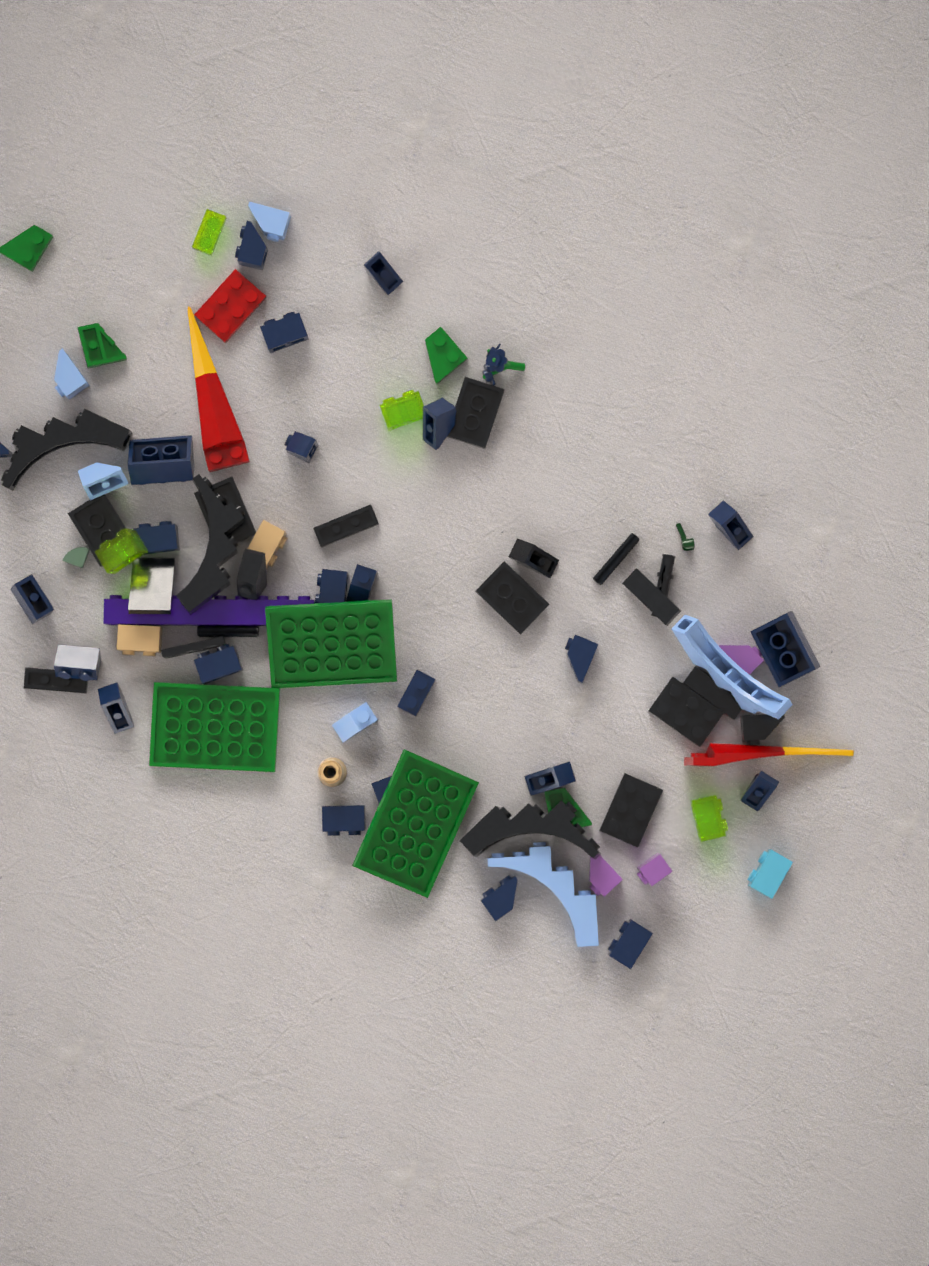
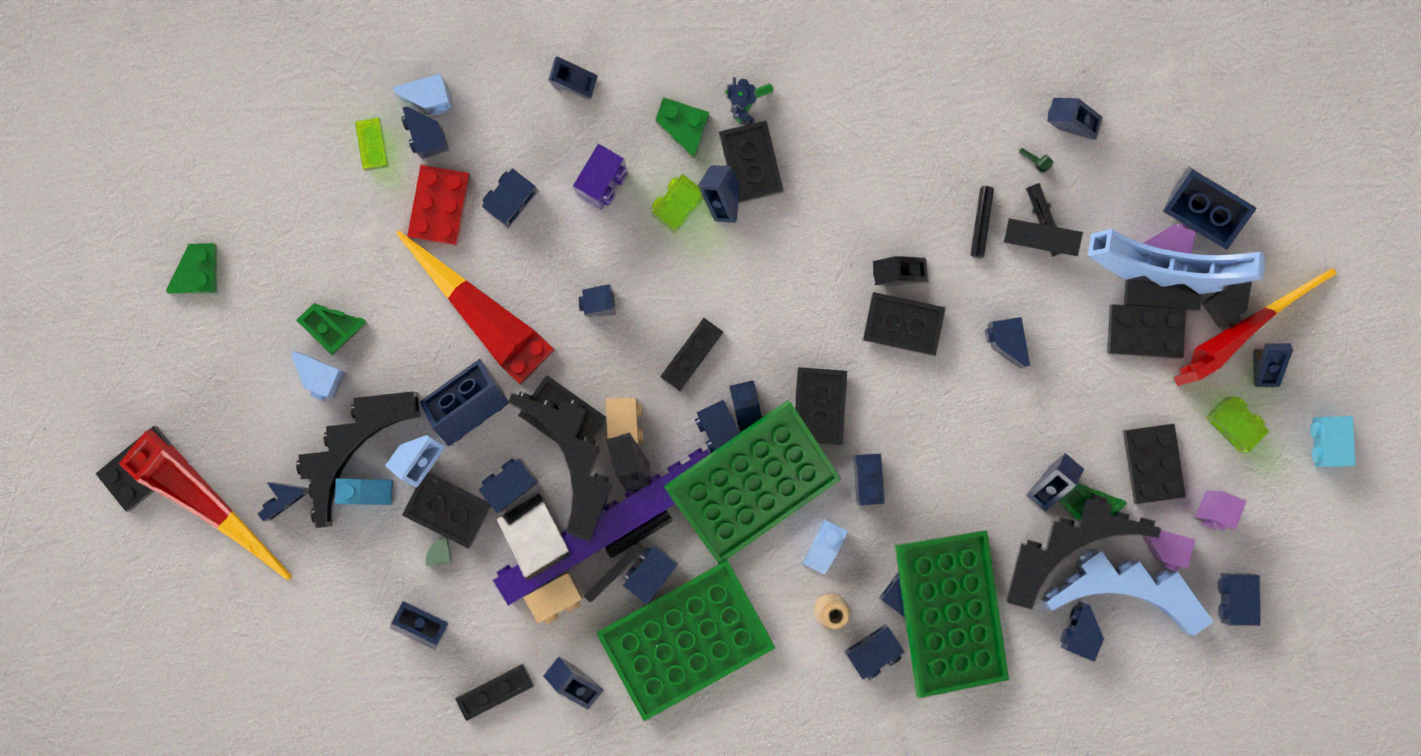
camera: 35 degrees left, 0 degrees up
(50, 480) = (363, 491): none -> dark azure slope
(77, 662) = (505, 661): brick -> none
(120, 551) = (480, 520): clear neon green brick -> none
(358, 358) = (600, 177): none -> dark purple brick
(417, 618) = (822, 402): none -> black plate

